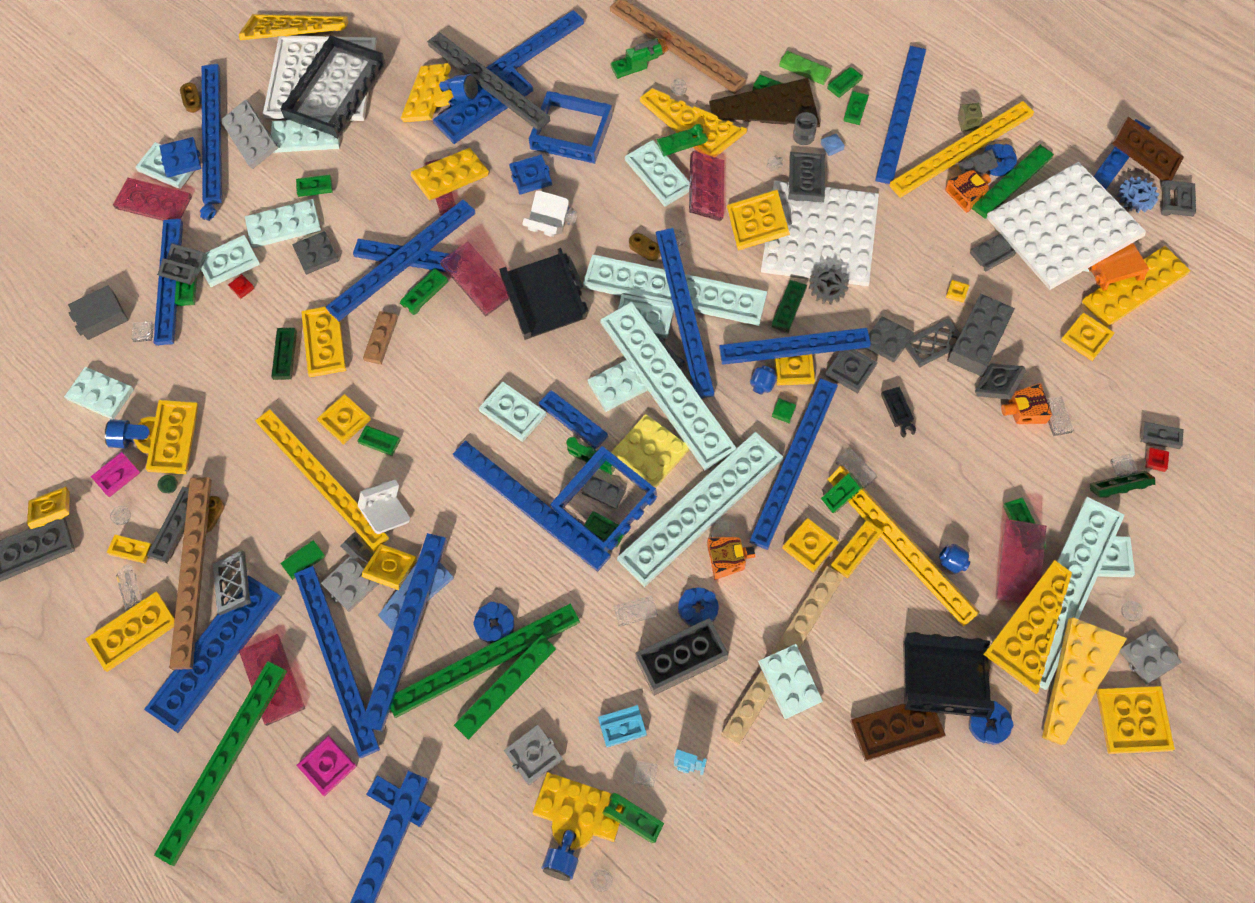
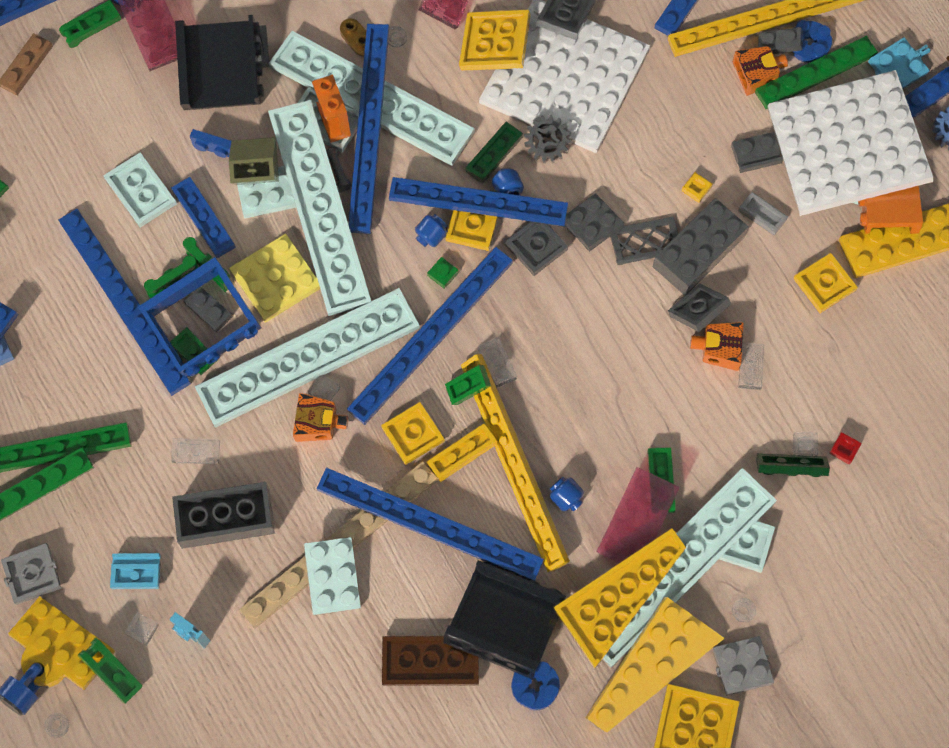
camera: 15 degrees right, 5 degrees up
(486, 614) = (39, 407): blue plate -> none
(565, 475) = (170, 276): none -> green plate
(569, 359) = (204, 141): none -> blue plate
(603, 362) = (253, 161): none -> olive slope
(655, 305) = (331, 108): none -> orange panel
(691, 598) = (260, 454): blue plate -> none
(810, 325) = (508, 182): none -> blue head
(855, 614) = (429, 524): none -> blue plate
(898, 410) = (571, 307): black plate -> none
(1017, 297) = (763, 213): none -> light grey tile
(1072, 153) = (903, 59): none -> medium azure plate
(1162, 435) = (863, 422): dark grey plate -> none

